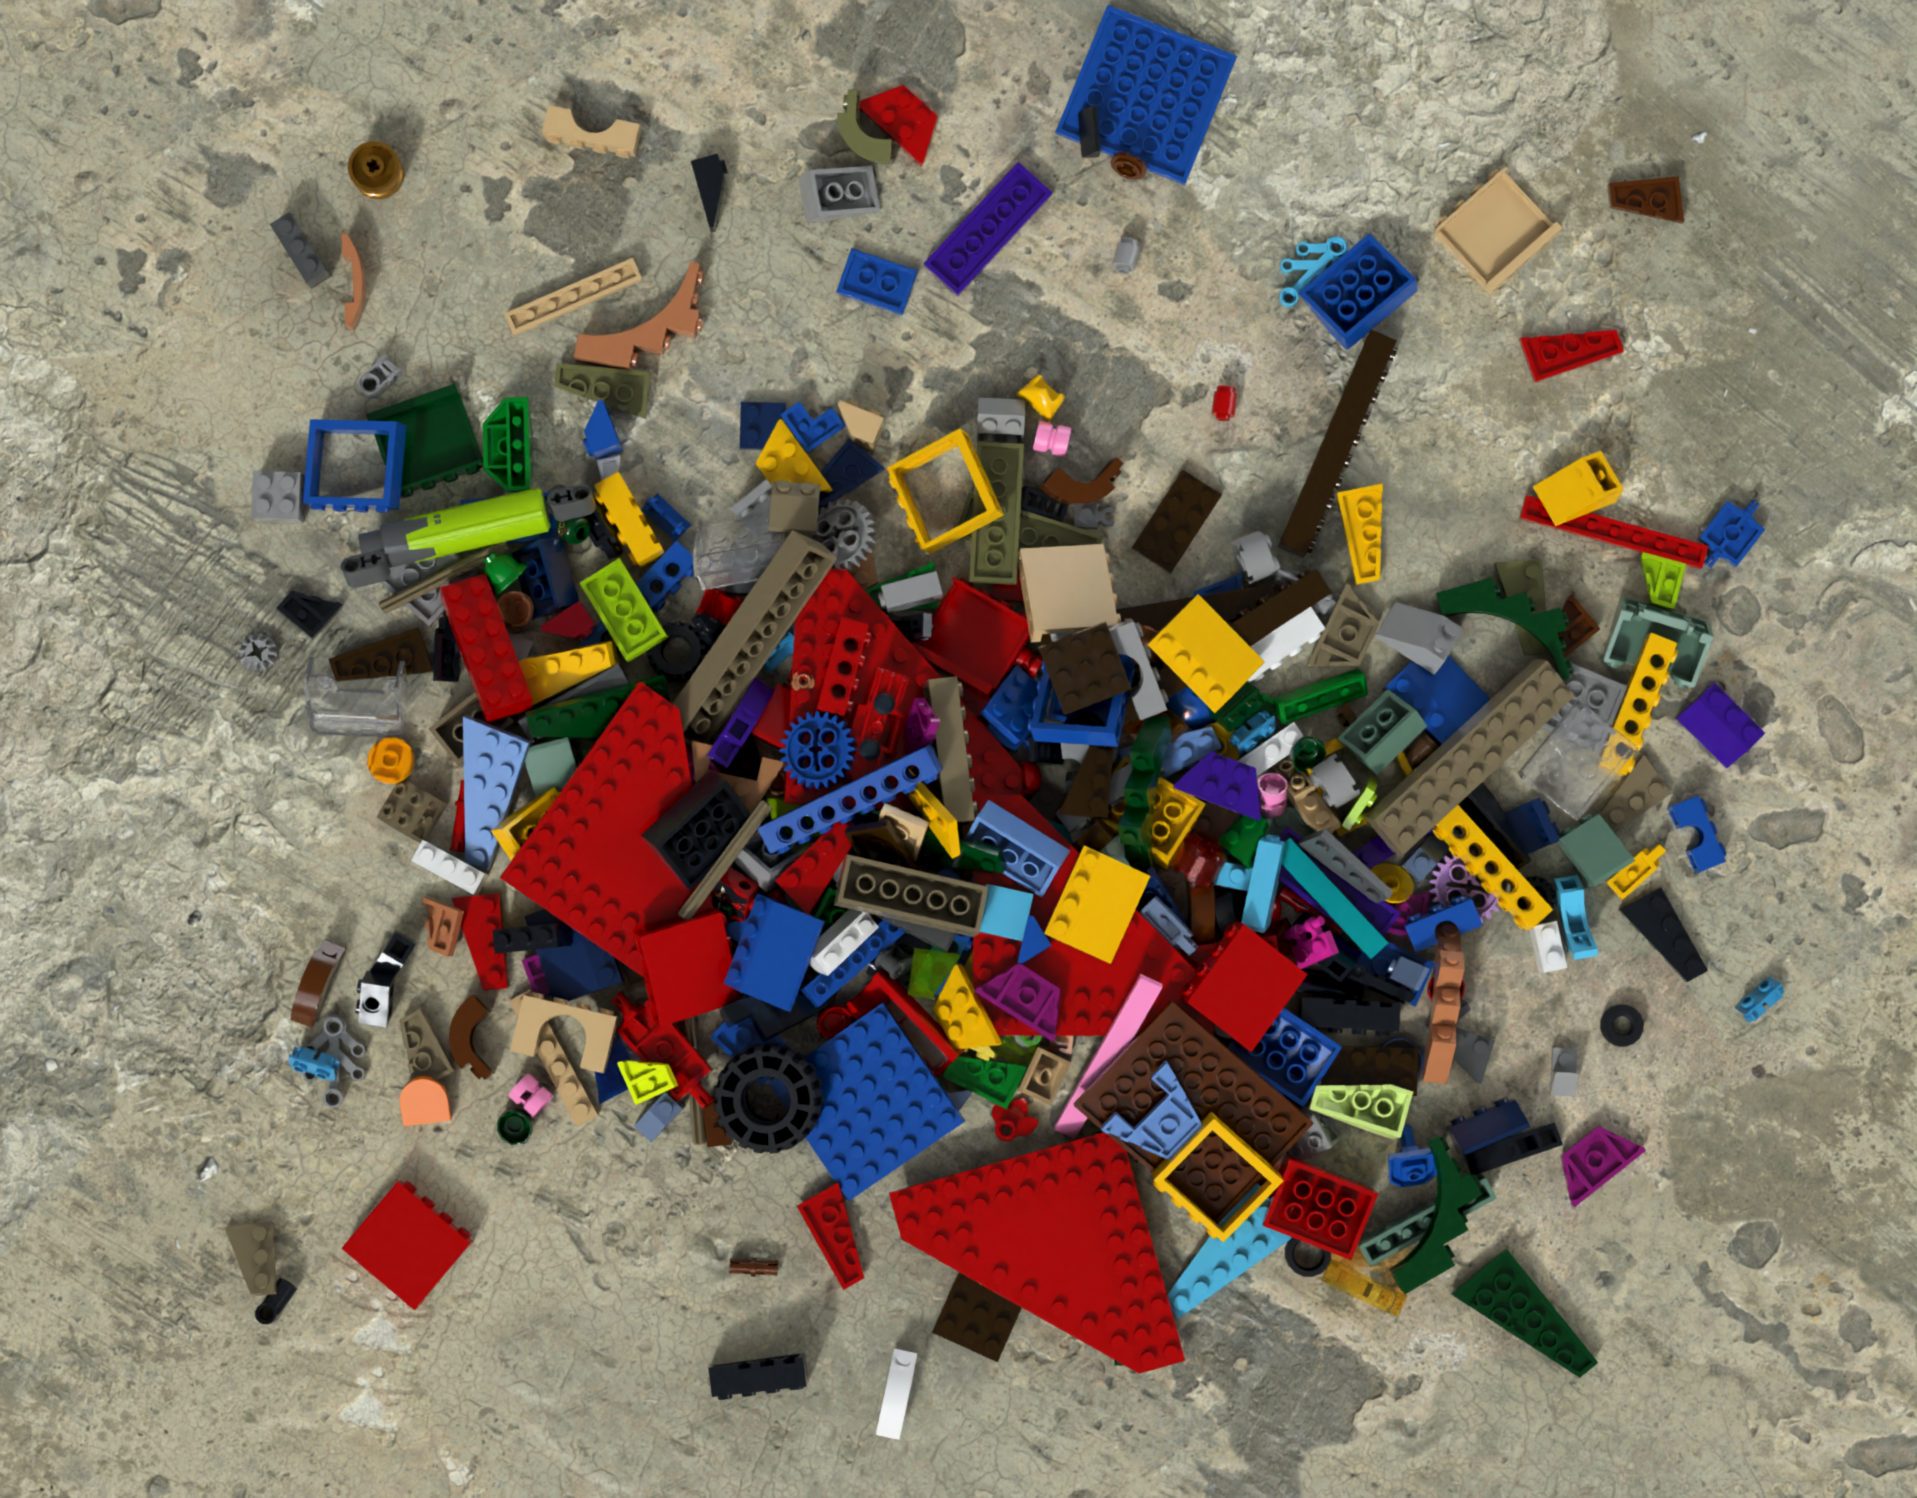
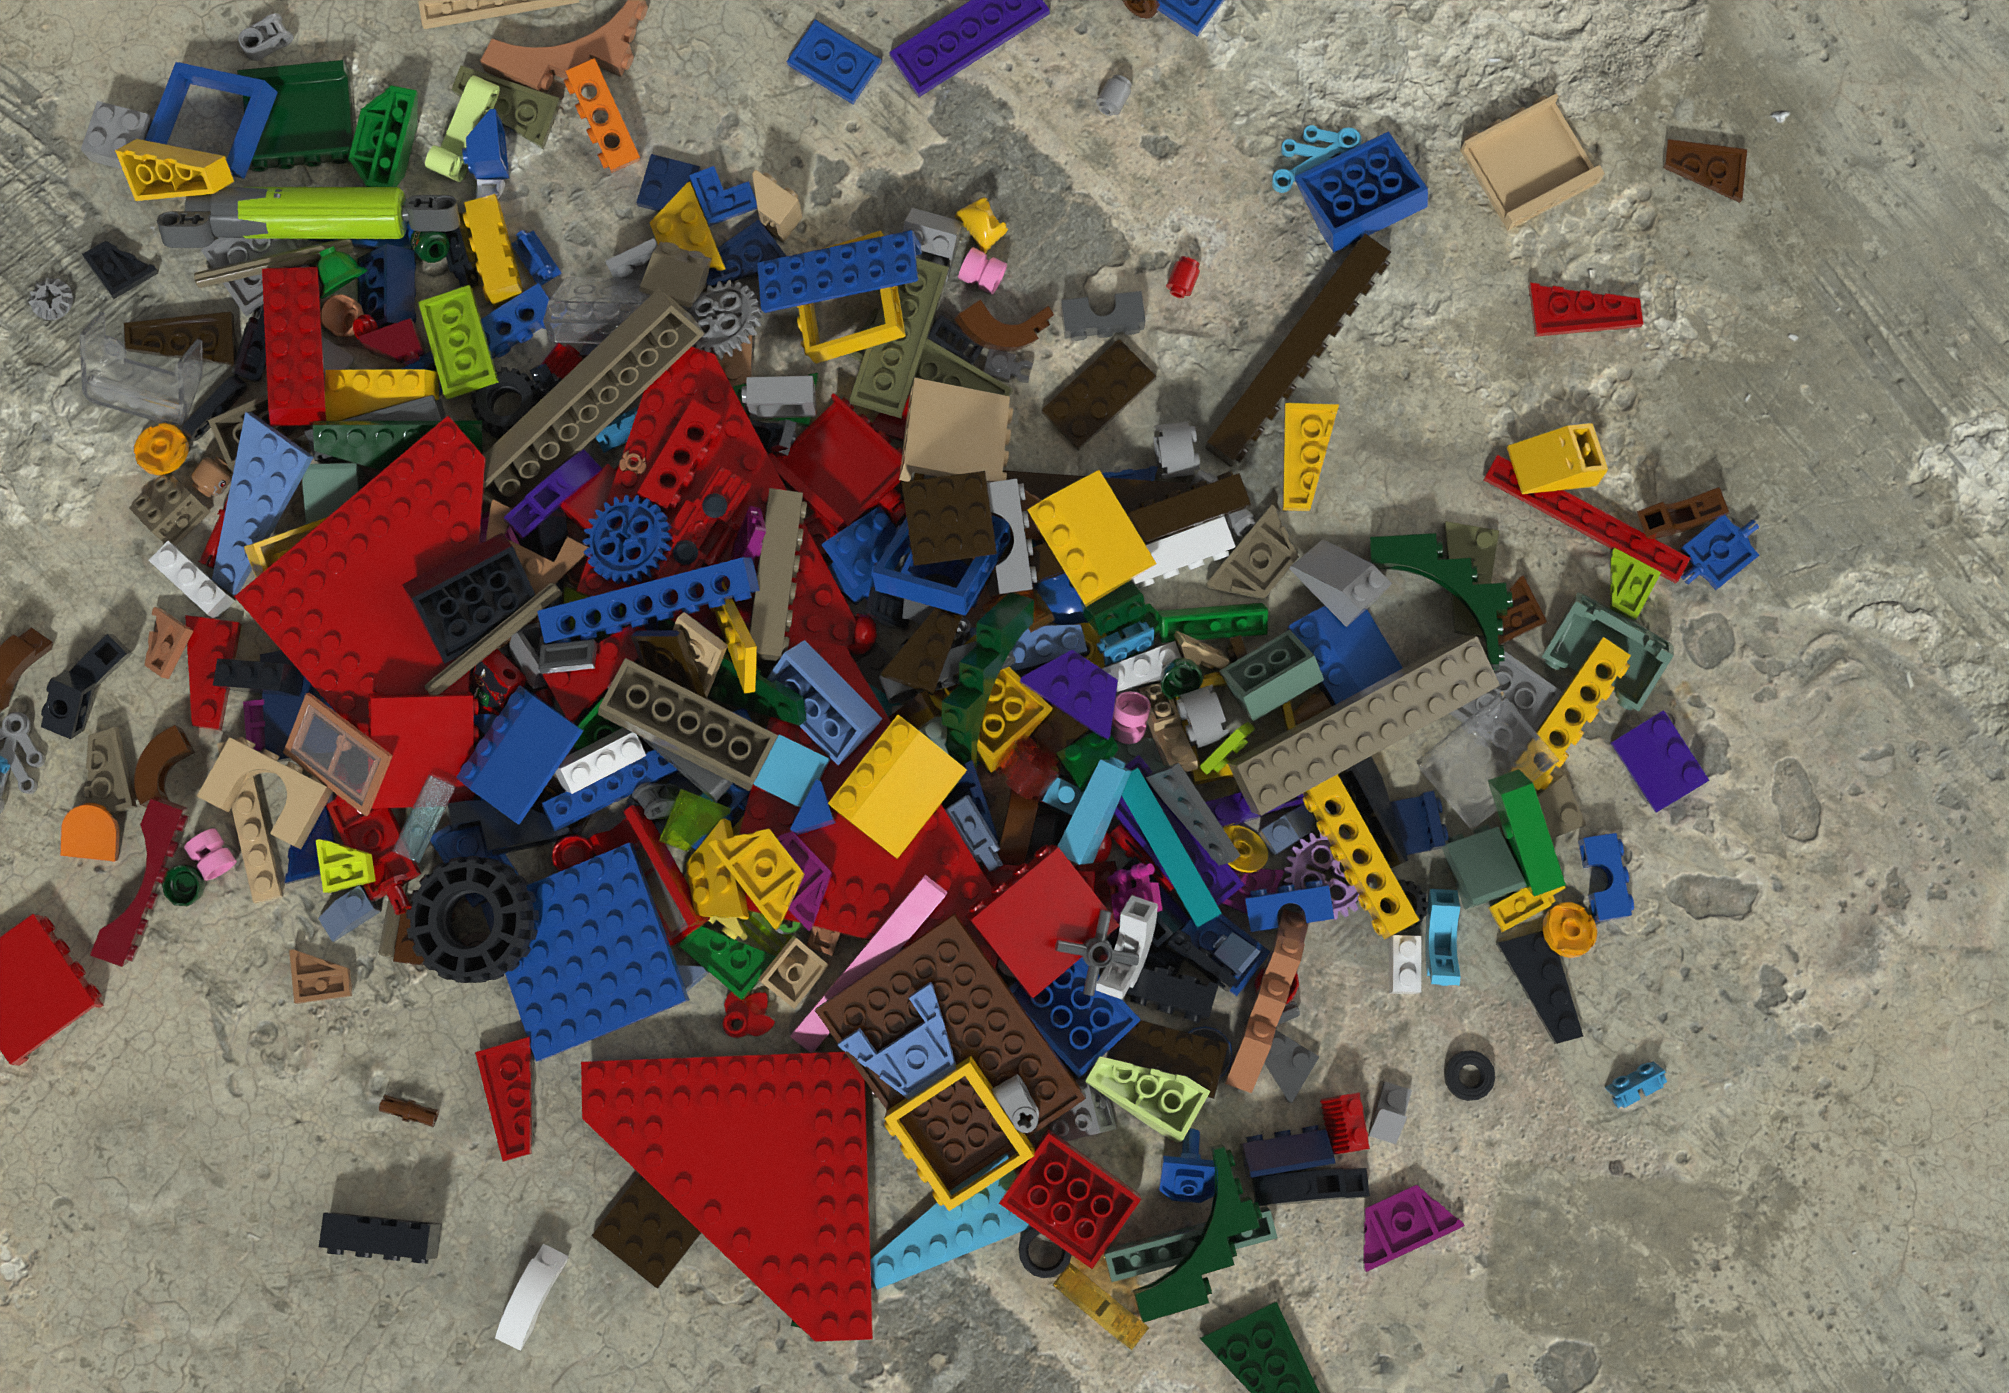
camera: 15 degrees right, 5 degrees down
(338, 521) = (171, 171): none -> yellow wedge
(426, 714) = (214, 406): none -> black beam
(441, 774) = (211, 476): none -> medium nougat head
(473, 1181) = (160, 828): none -> dark red arch
(539, 615) = (364, 325): none -> red plate
(578, 410) = (475, 102): none -> yellowish green beam
(619, 988) = (337, 754): none -> clear door
(648, 1176) = (318, 979): none -> medium nougat wing
(674, 347) = (590, 75): none -> orange brick
(705, 1024) = (423, 818): none -> clear light blue tile
(793, 861) = (567, 656): none -> dark grey tile
(932, 472) = (838, 271): none -> blue bracket
(1004, 1002) = (762, 871): none -> yellow wing
(1146, 462) = (1082, 322): none -> dark grey arch
(1257, 1139) = (1014, 1100): none -> light grey piece
(1287, 1002) = (1107, 956): none -> dark grey bar
(1316, 725) = (1200, 652): none -> tan slope
(1320, 991) = (1134, 937): none -> white arch
(1529, 1090) = (1345, 1123): none -> red brick
(1624, 814) = (1526, 831): none -> green brick
(1677, 884) = (1569, 930): none -> light orange tile
(1694, 510) = (1673, 518): none -> reddish brown arch

